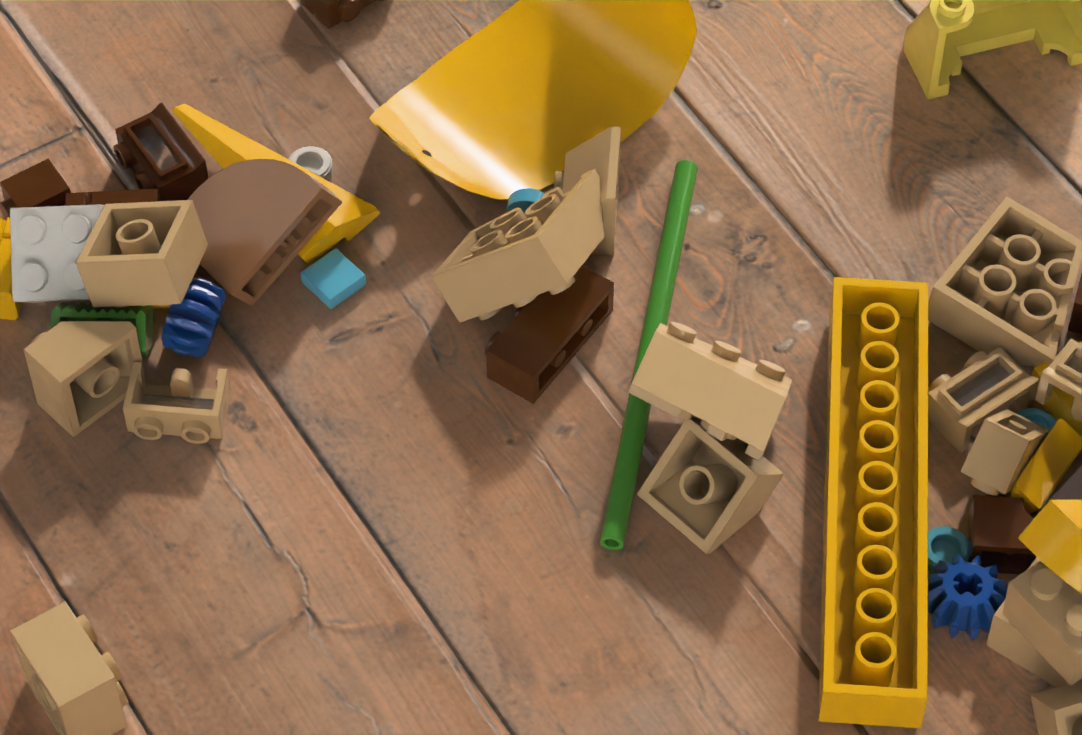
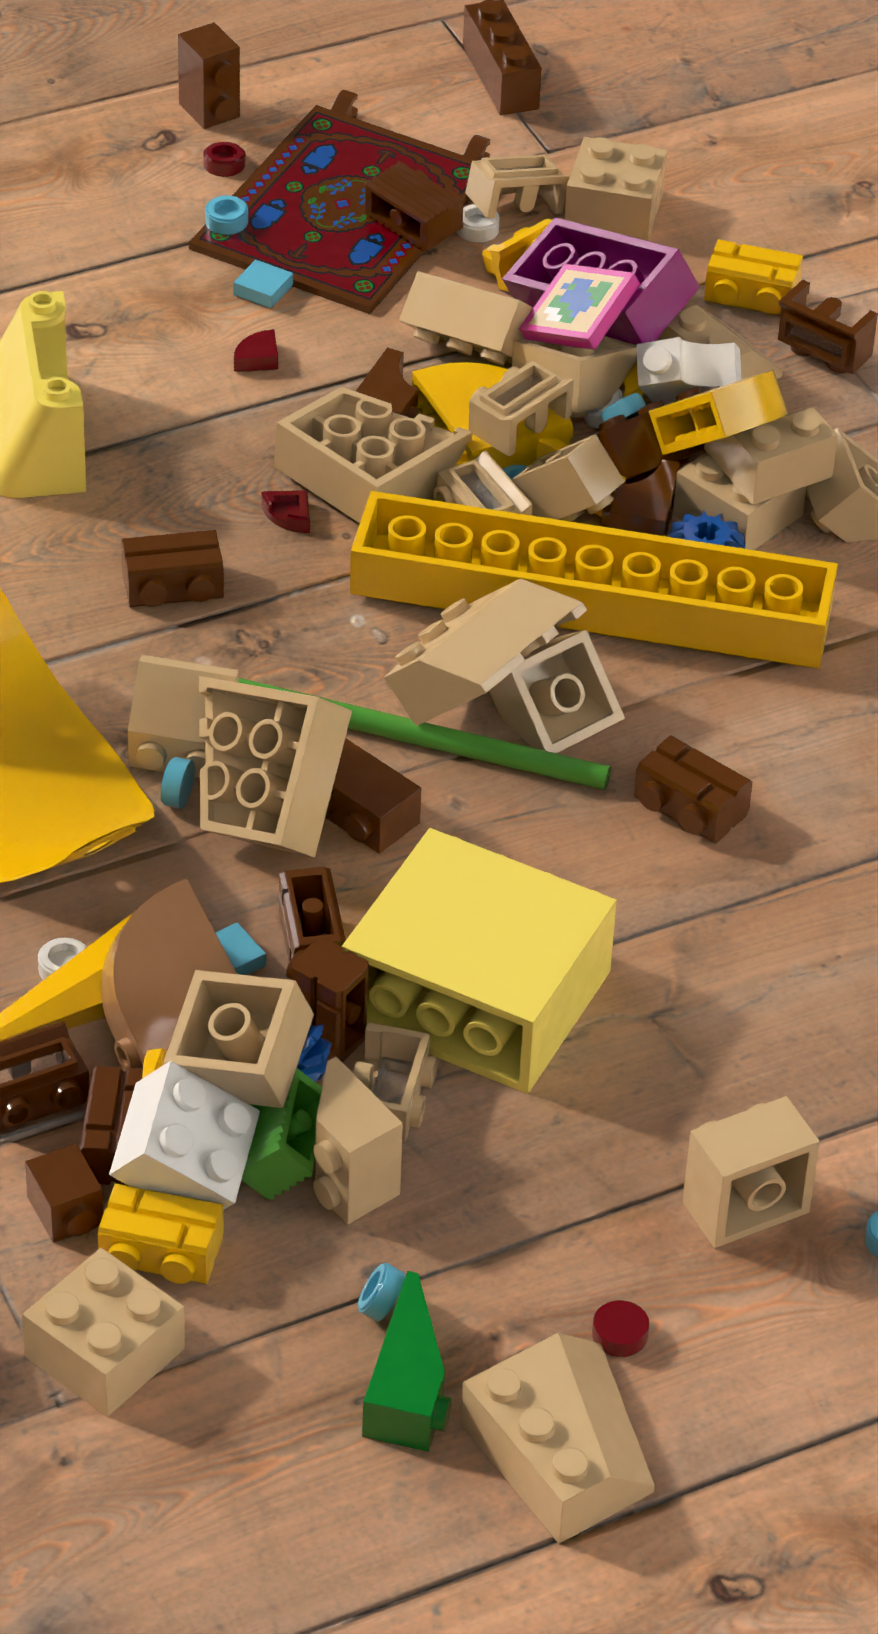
camera: 85 degrees left, 10 degrees down
(250, 336) = (336, 992): none -> reddish brown brick
(315, 444) = (484, 957): none -> light yellow brick
(348, 320) = (308, 908): none -> reddish brown brick
(596, 609) = (692, 789): none -> reddish brown brick
(813, 166) = (172, 568): none -> reddish brown brick
(938, 249) = (287, 509): none -> dark red tile

